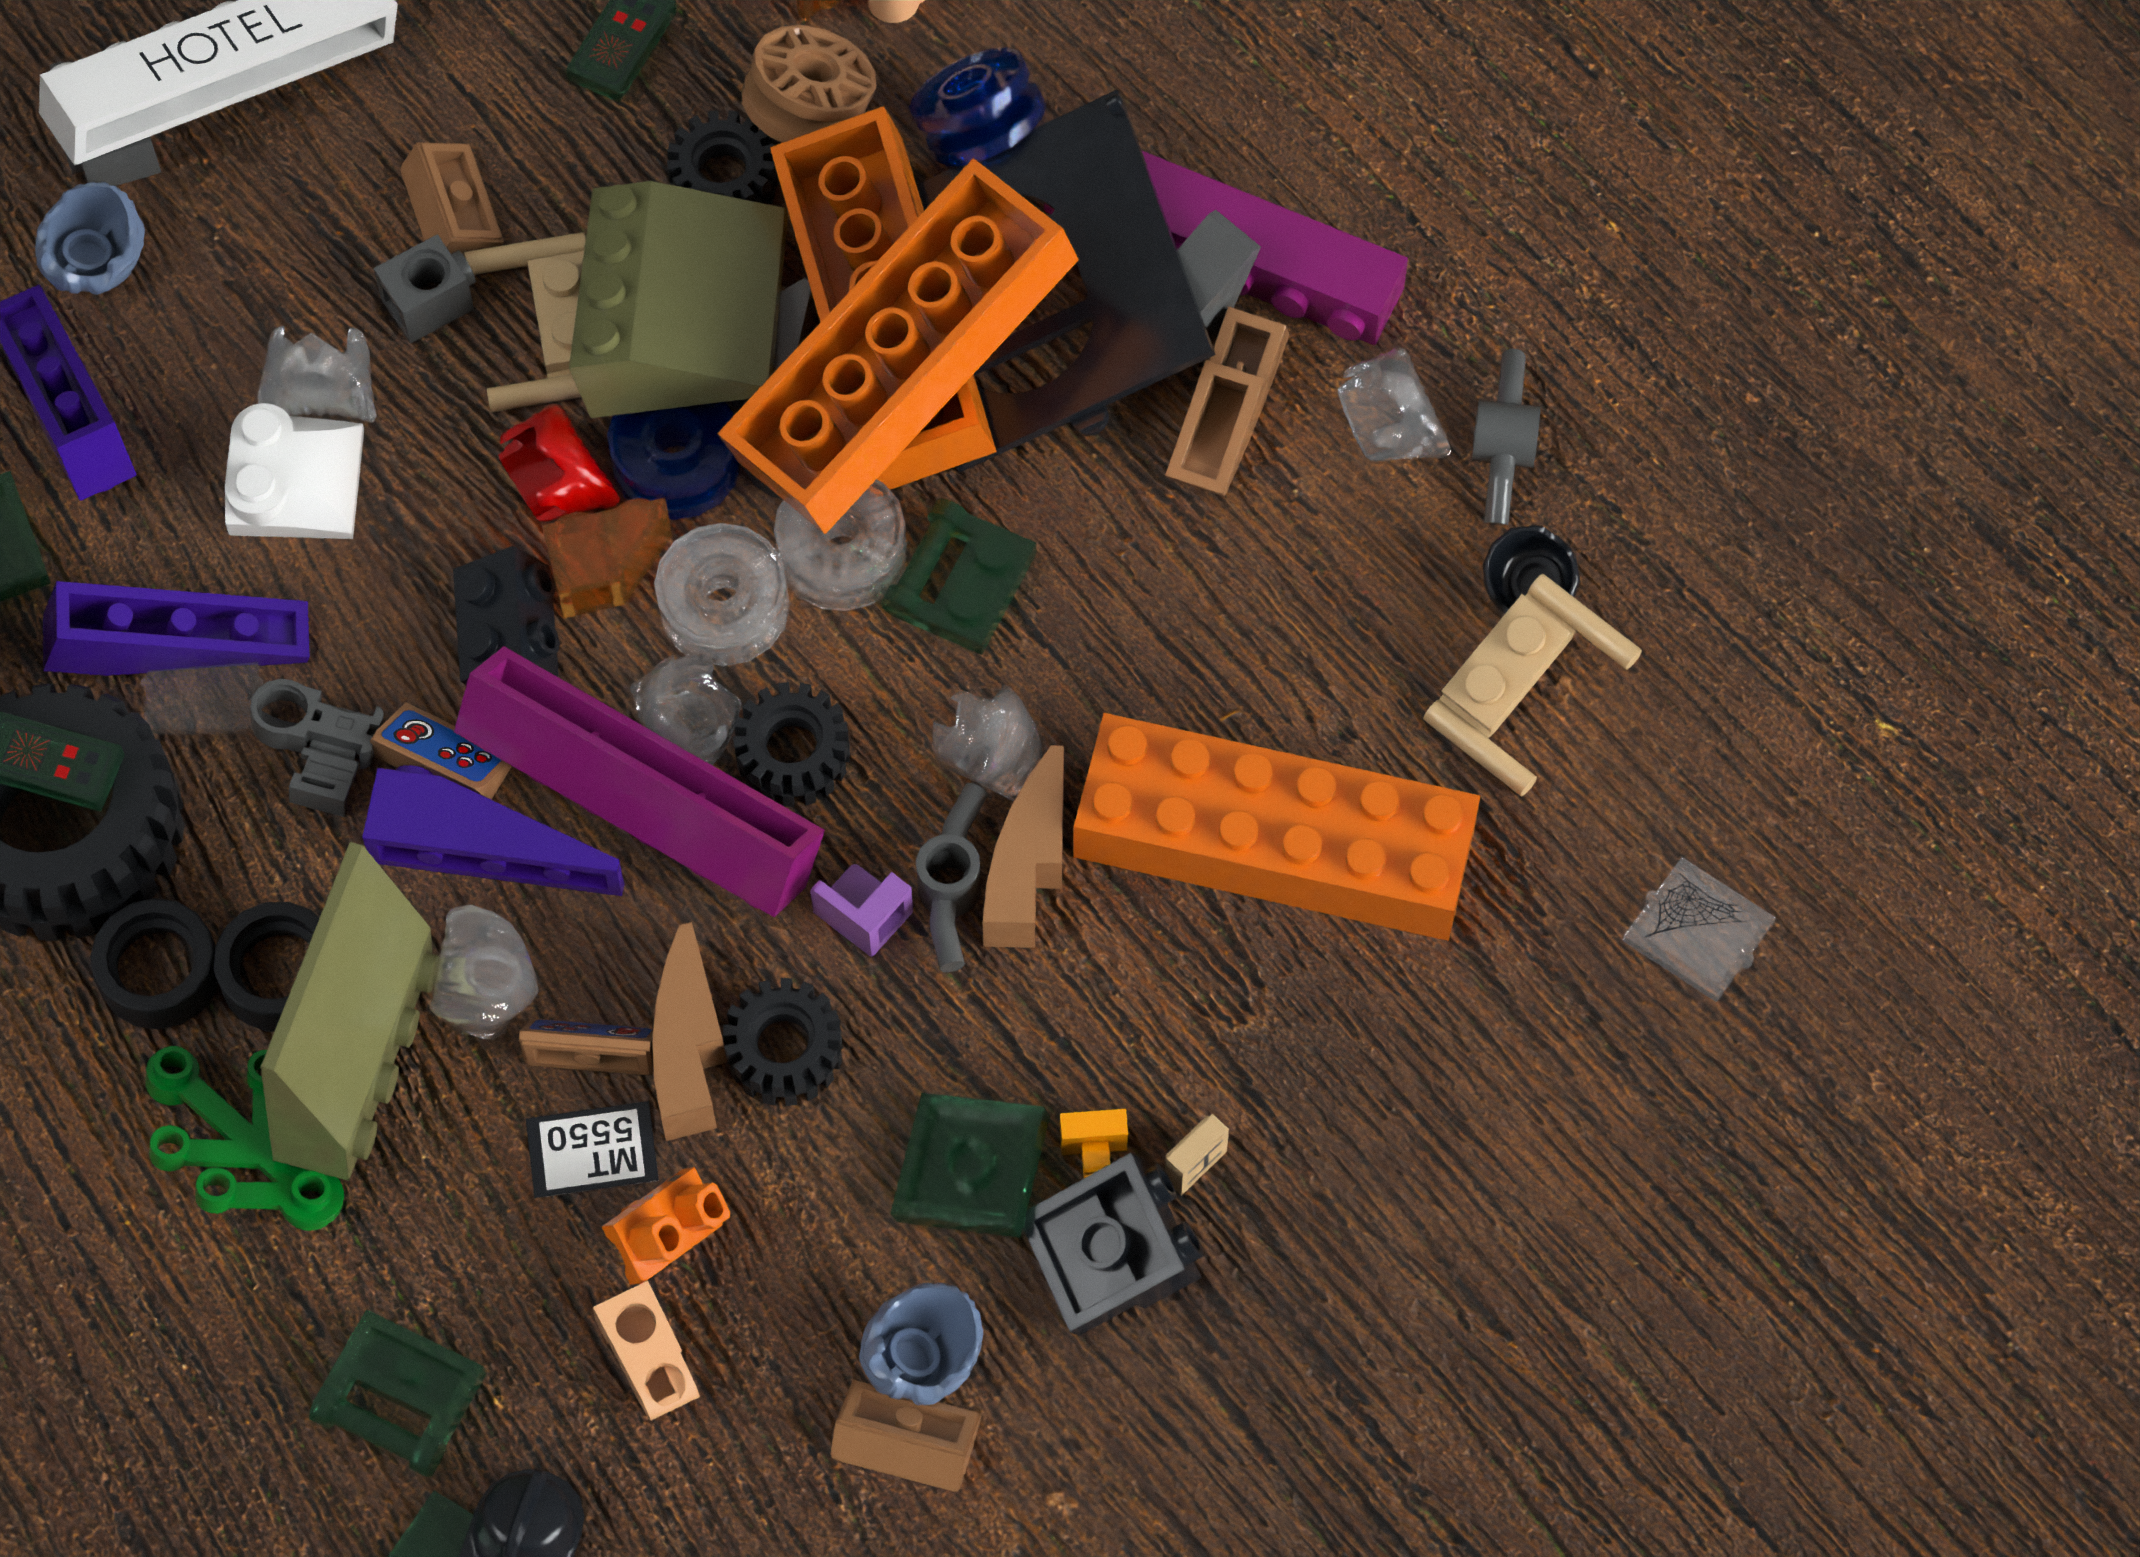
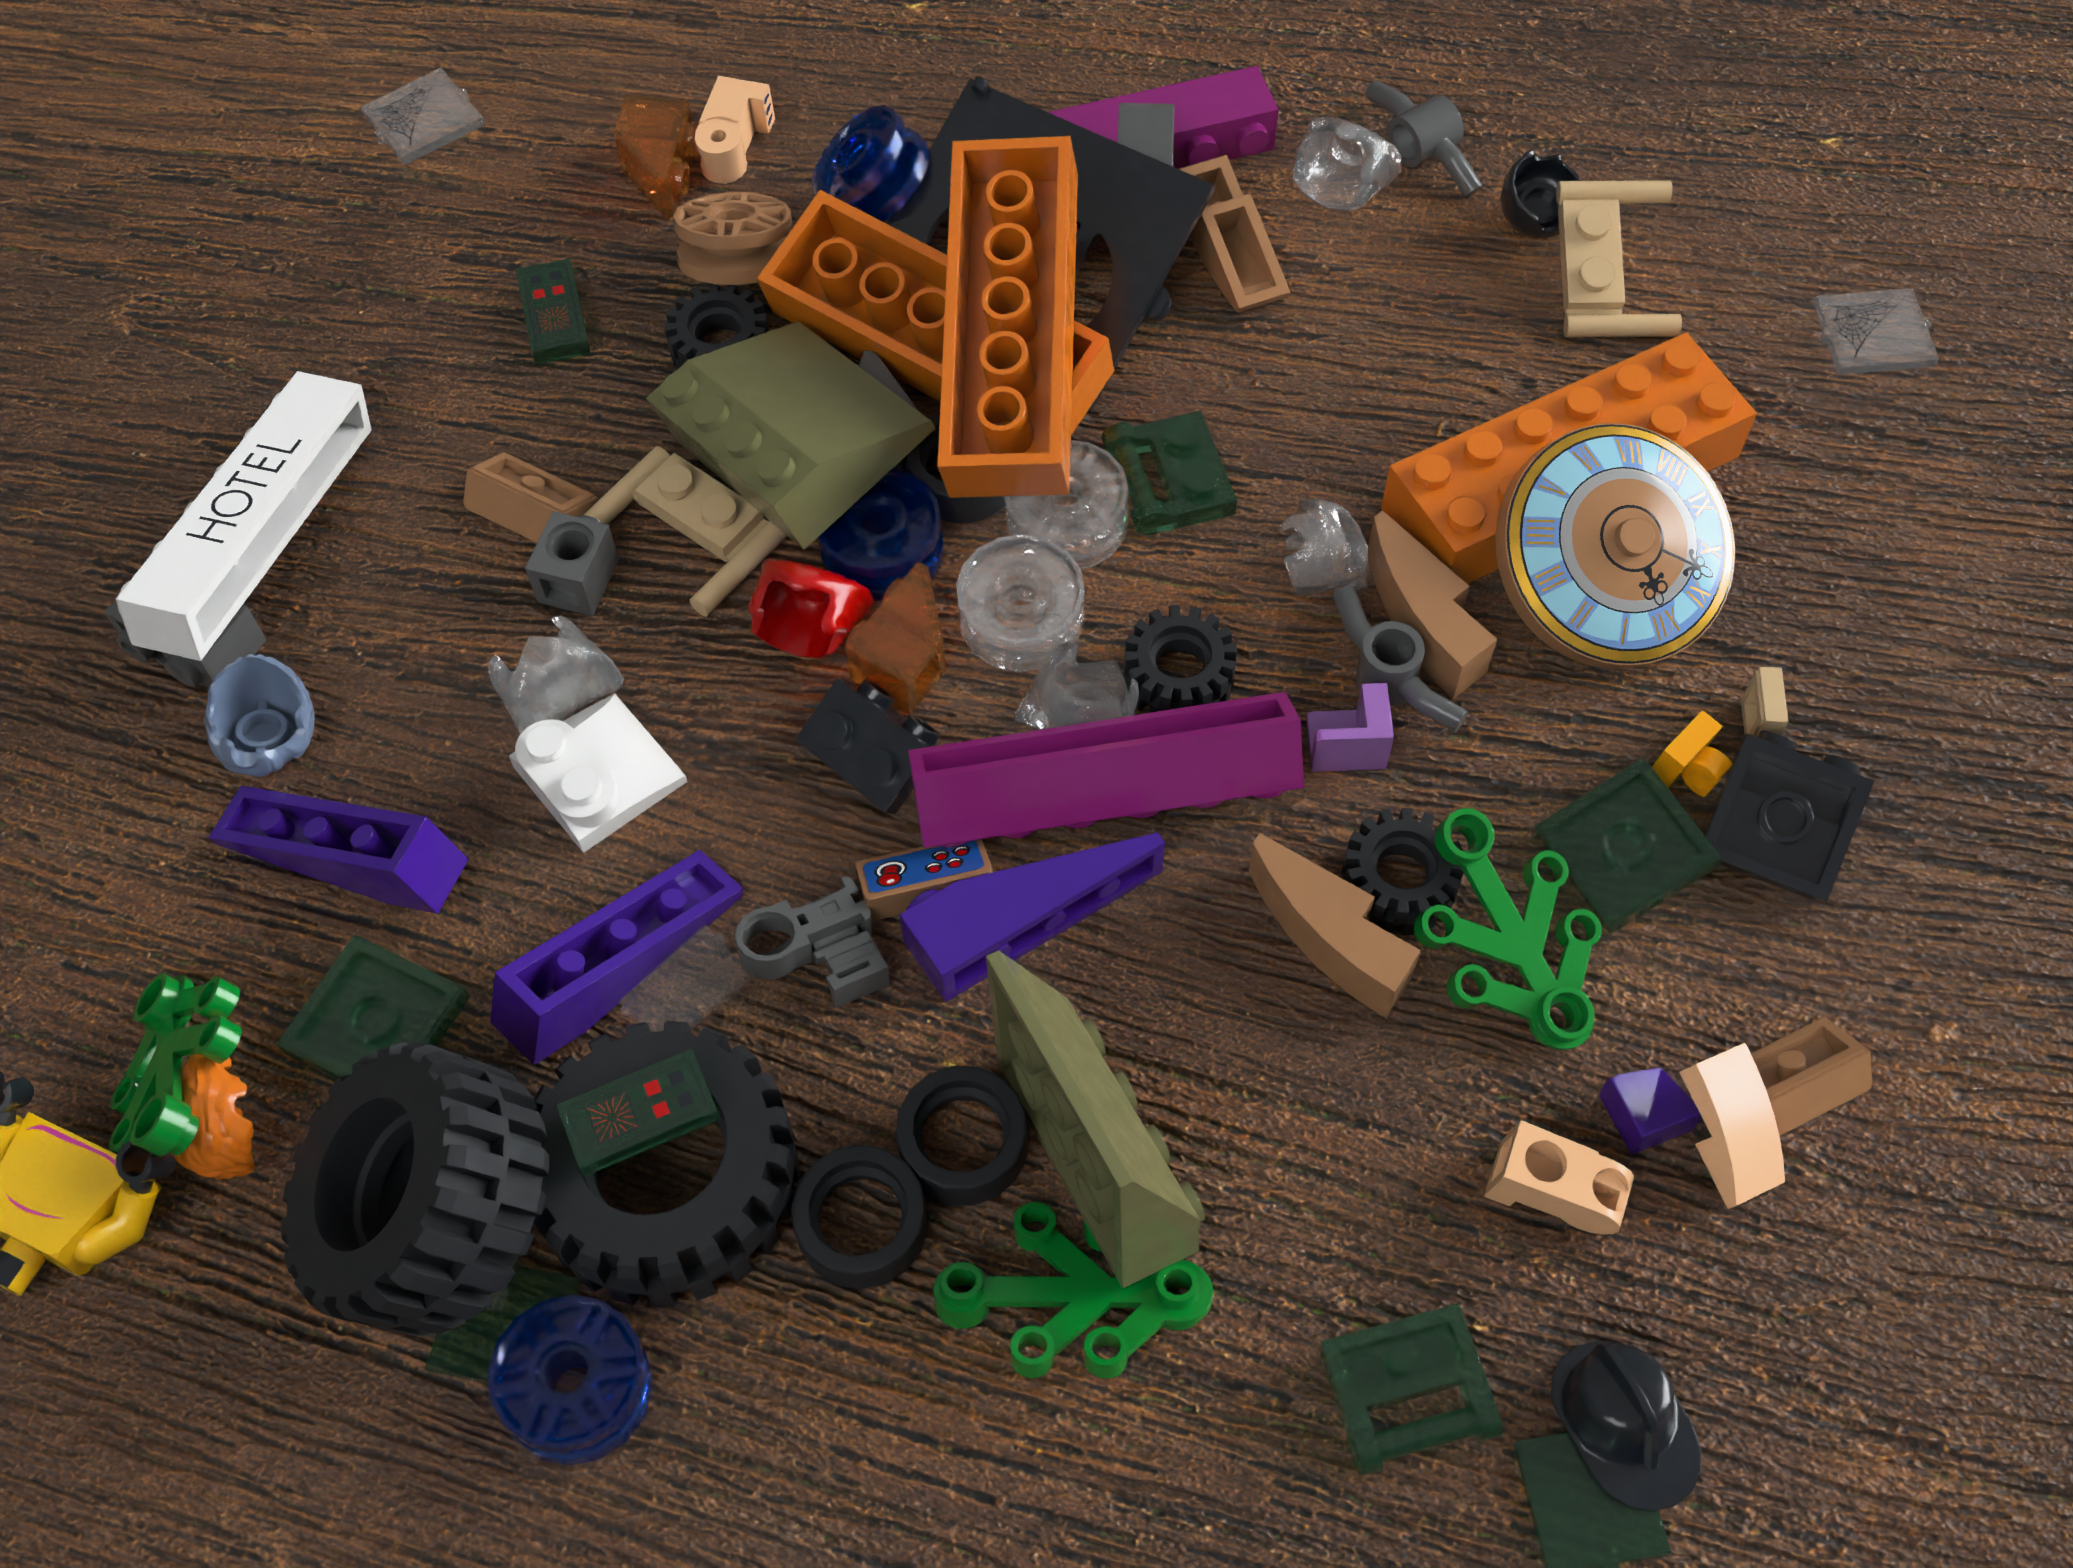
camera: 40 degrees left, 5 degrees down
(482, 973) = (1136, 1005): clear hair -> none
(587, 1046) = (1264, 992): medium nougat slope -> none
(591, 1149) = (1340, 1072): sticker -> none
(666, 1224) = (1478, 1069): orange hips -> none
(770, 1359) = (1648, 1108): none -> dark purple slope
(800, 1162) = (1516, 939): none -> green plant
(803, 1419) = (1744, 1139): none -> light nougat slope
(922, 1343) = (1748, 993): sand blue hair -> none
(1212, 926) = (1615, 546): none -> dish

